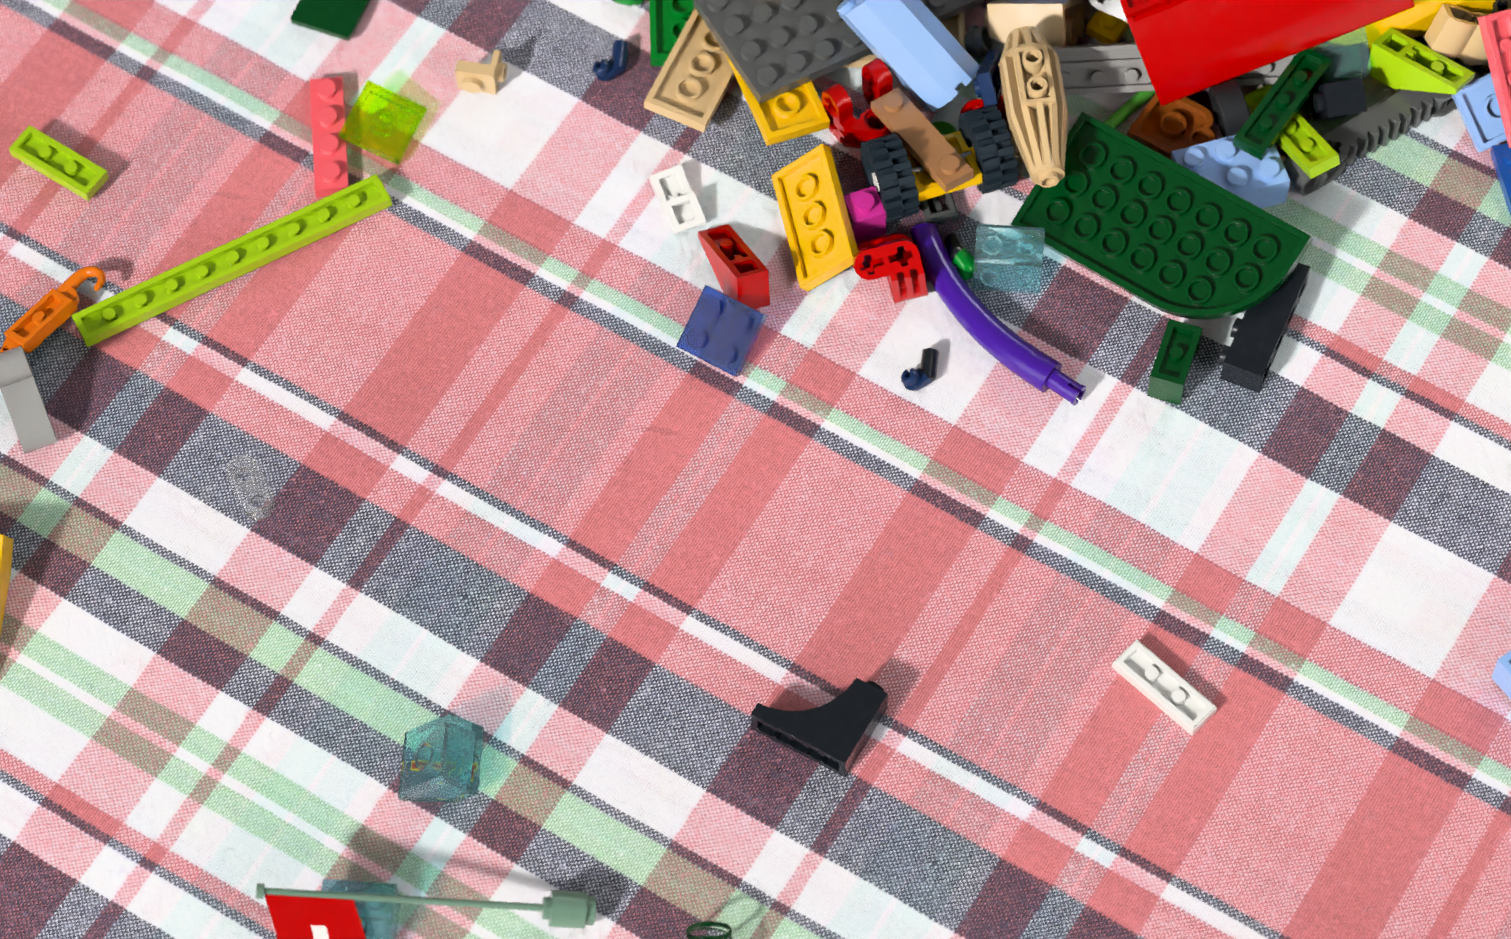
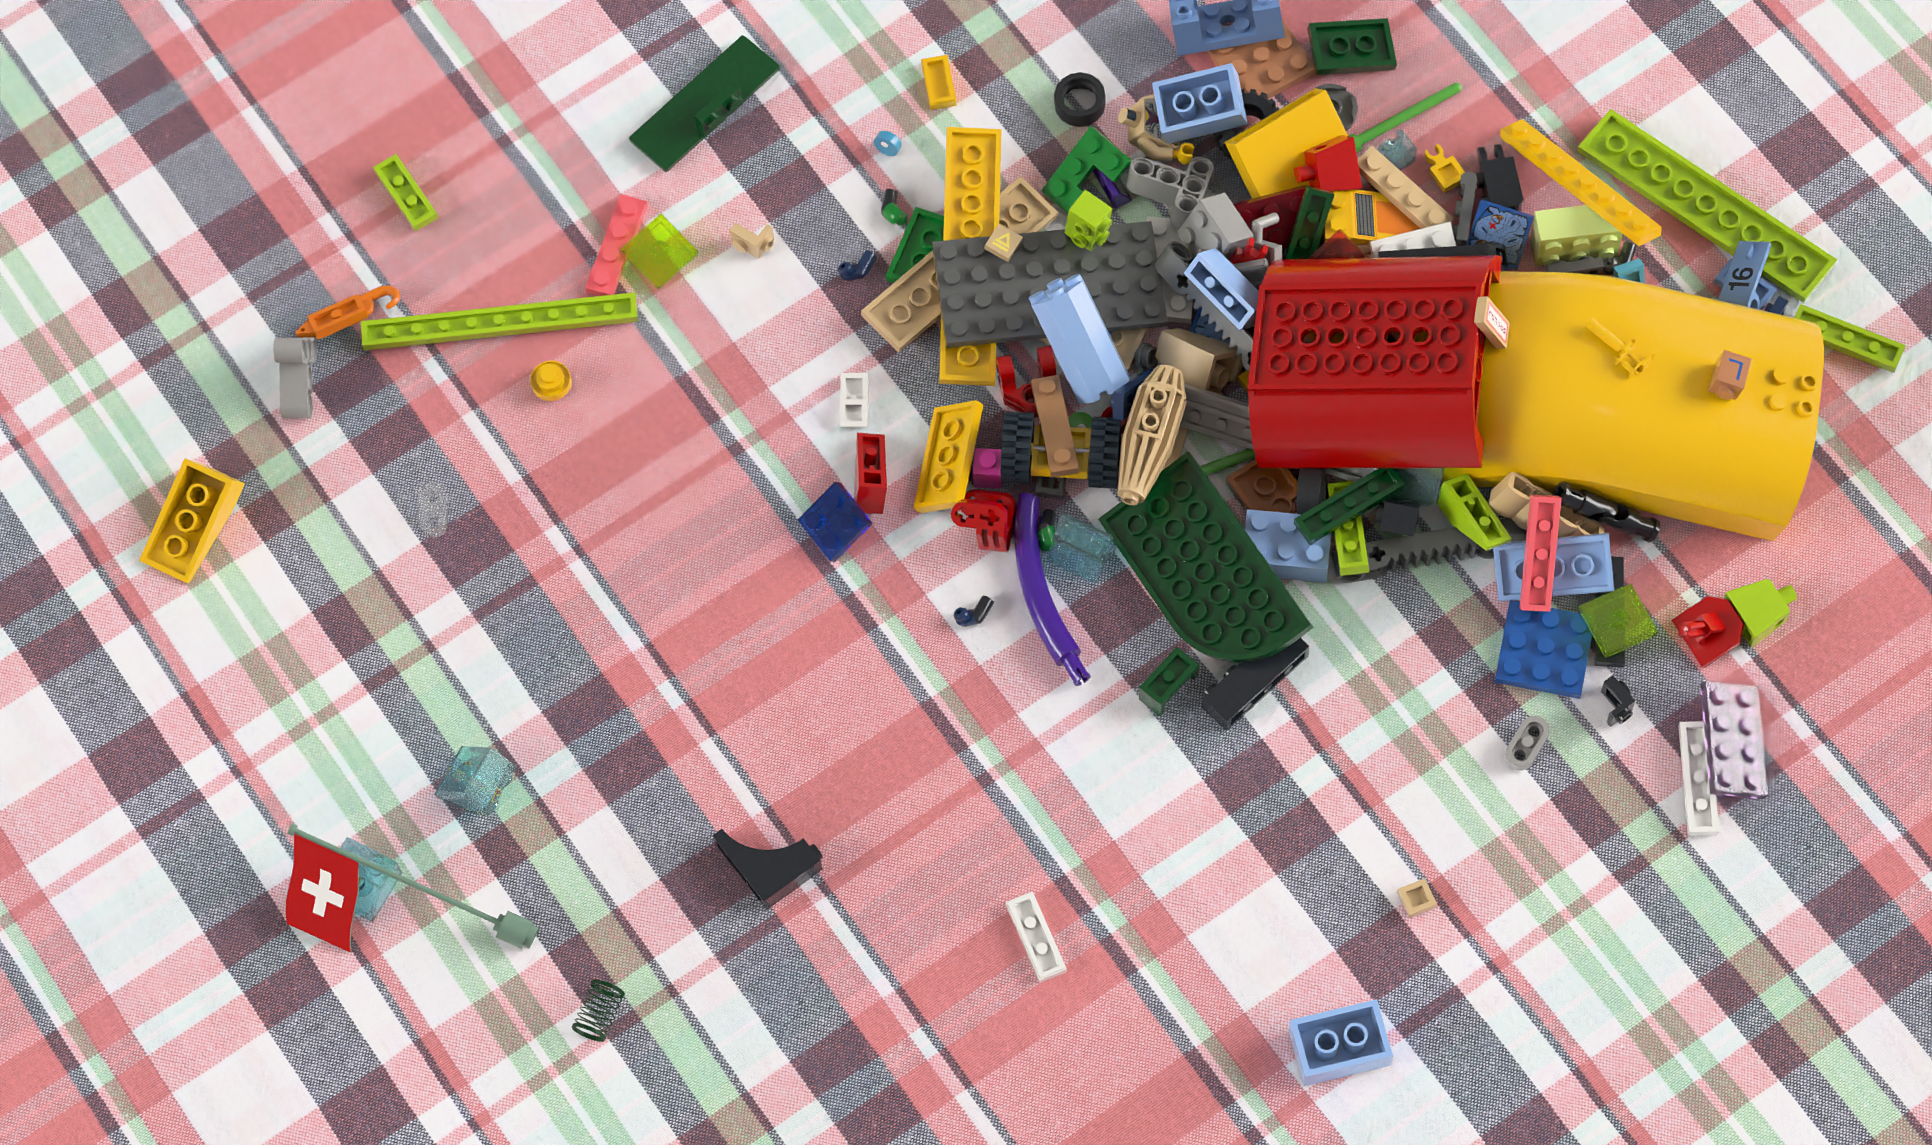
camera: 25 degrees right, 5 degrees up
(323, 301) = (550, 380): none -> yellow plate

